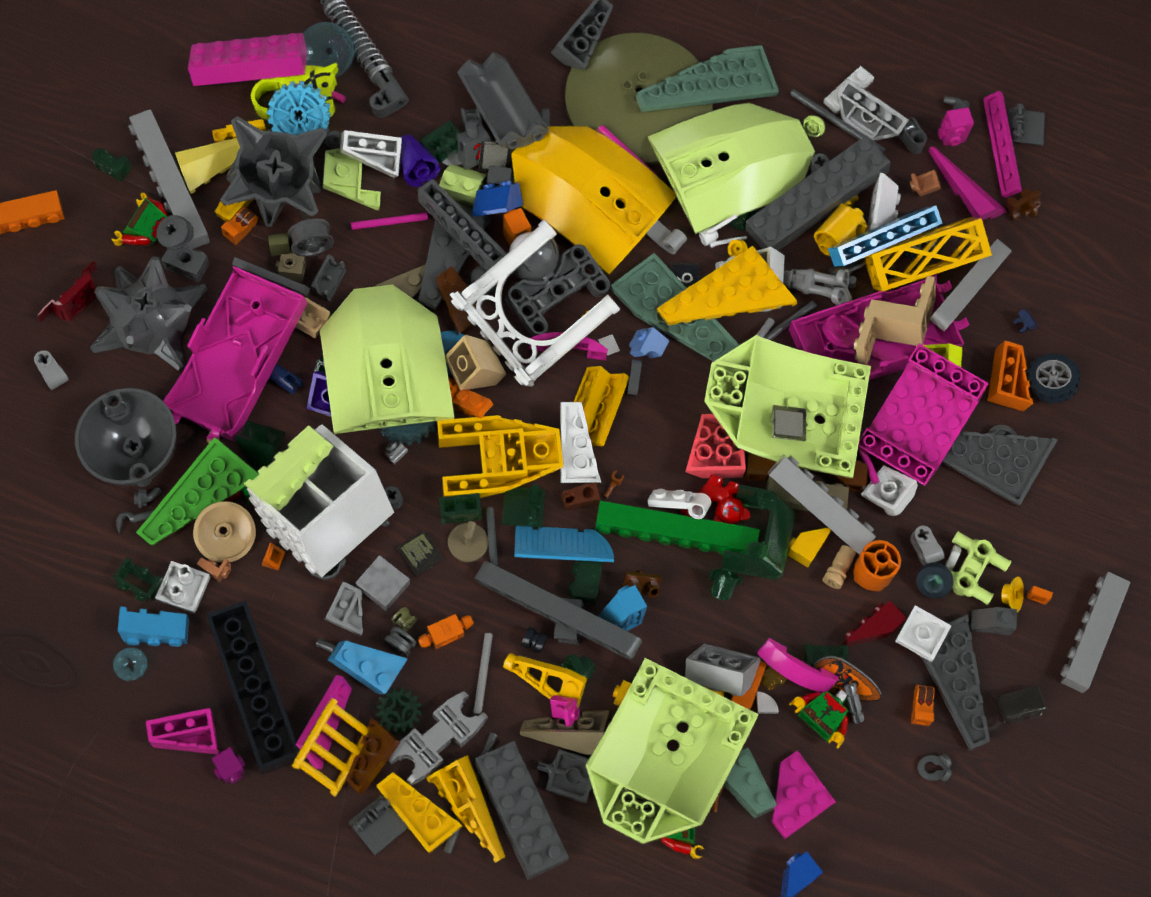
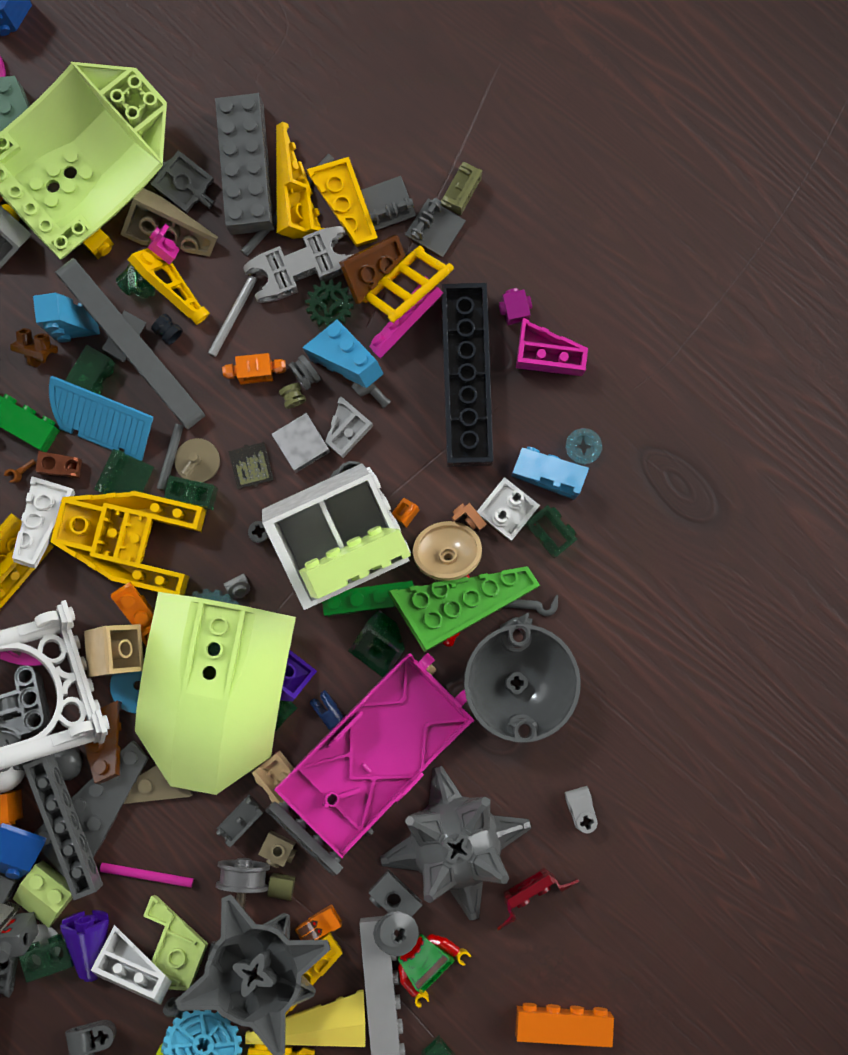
camera: 155 degrees left, 15 degrees up
(313, 861) = (461, 188): none -> olive hinge
(326, 817) = (435, 227): none -> dark grey hinge

